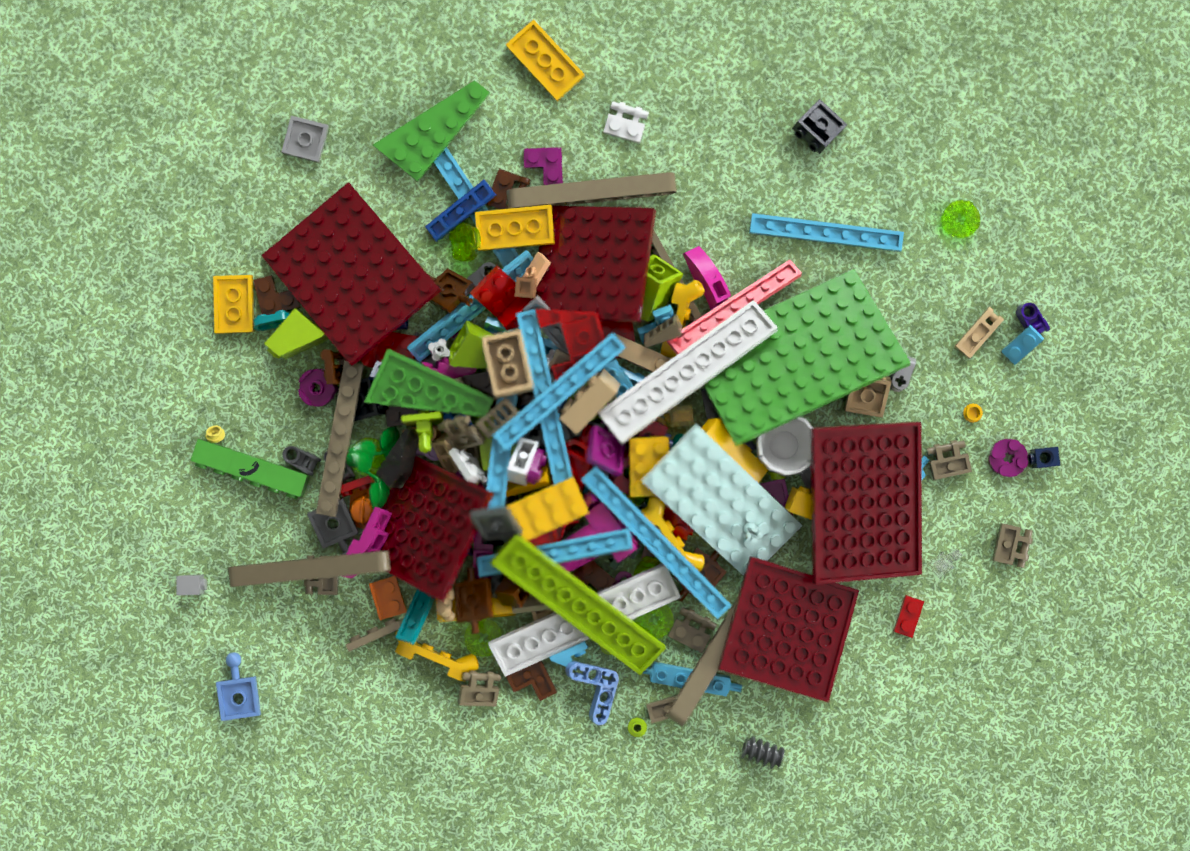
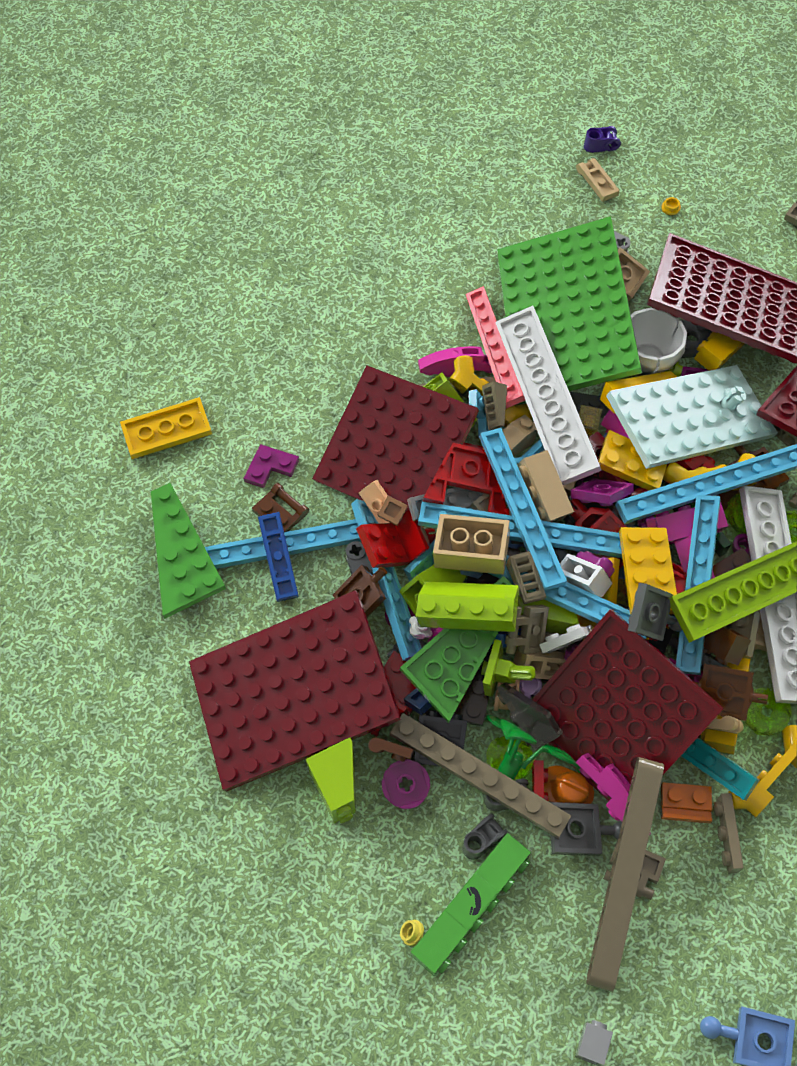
camera: 65 degrees left, 25 degrees down
(233, 304) = (264, 845): yellow plate -> none
(266, 322) = (306, 801): teal plate -> none
(270, 300) = (281, 801): reddish brown plate -> none
(305, 139) = (118, 689): light grey plate -> none
(452, 381) = (468, 606): none -> lime slope
(465, 251) = (305, 571): clear neon green plate -> none
(515, 227) = (322, 507): yellow plate -> none
(593, 191) = (317, 433): dark tan beam -> none
(623, 127) = (272, 383): white plate -> none
(819, 126) = (352, 232): black plate -> none
(826, 232) = (451, 260): medium azure plate -> none
(949, 466) = (716, 234): dark tan plate -> none
(971, 221) = (492, 154): clear neon green plate -> none
(1003, 467) = (723, 186): magenta plate -> none
(1022, 345) = (622, 150): medium azure plate -> none
(1052, 457) = (733, 167): dark blue brick -> none

